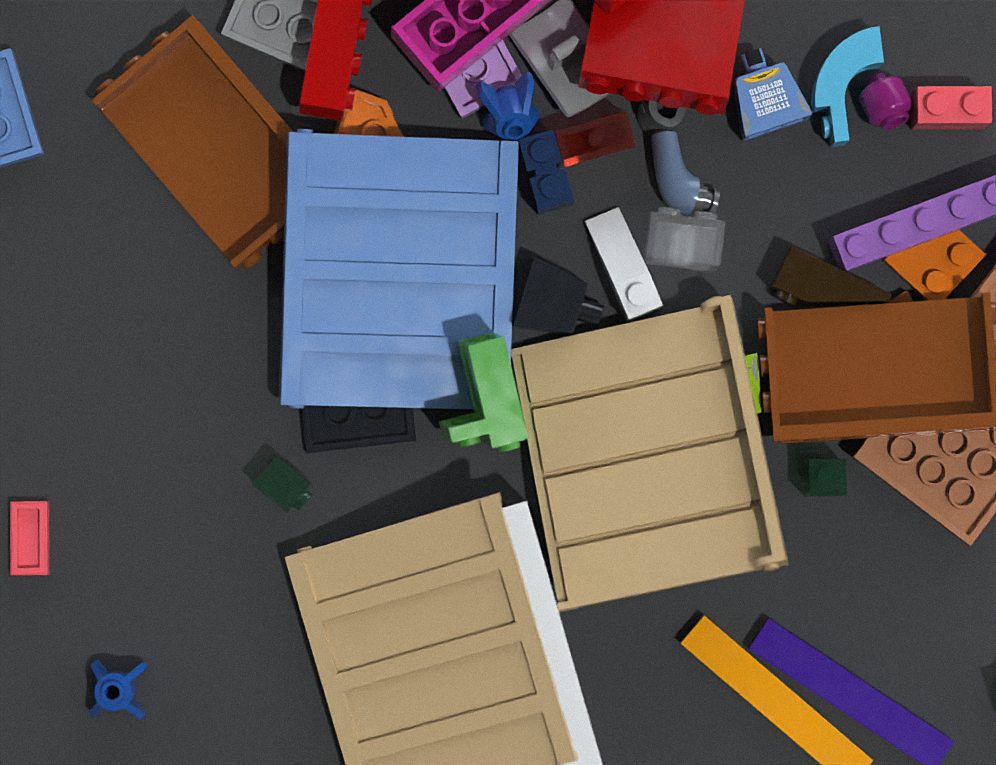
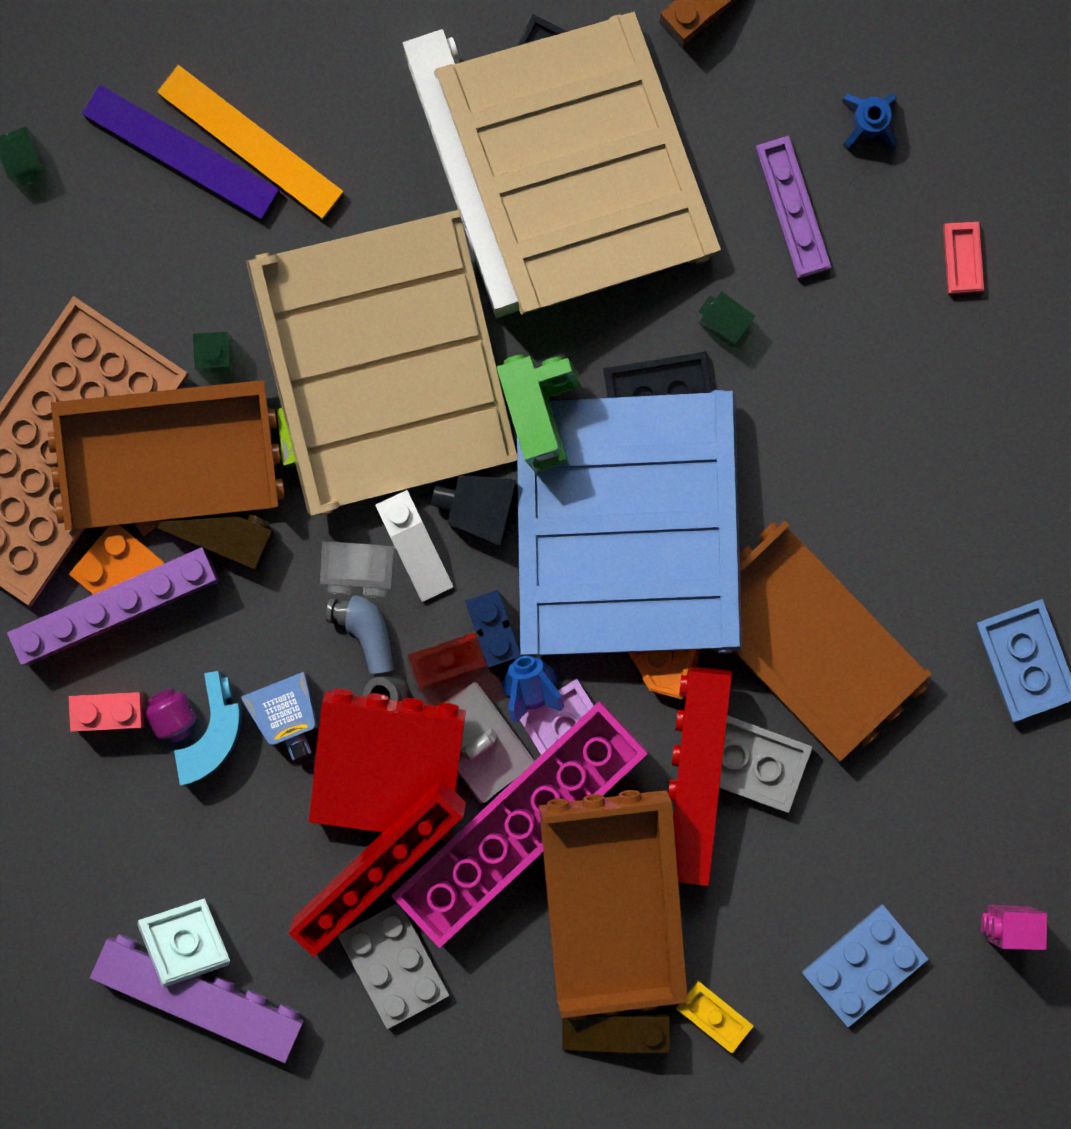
camera: 175 degrees right, 0 degrees up
(206, 601) = (793, 207): none -> medium lavender tile

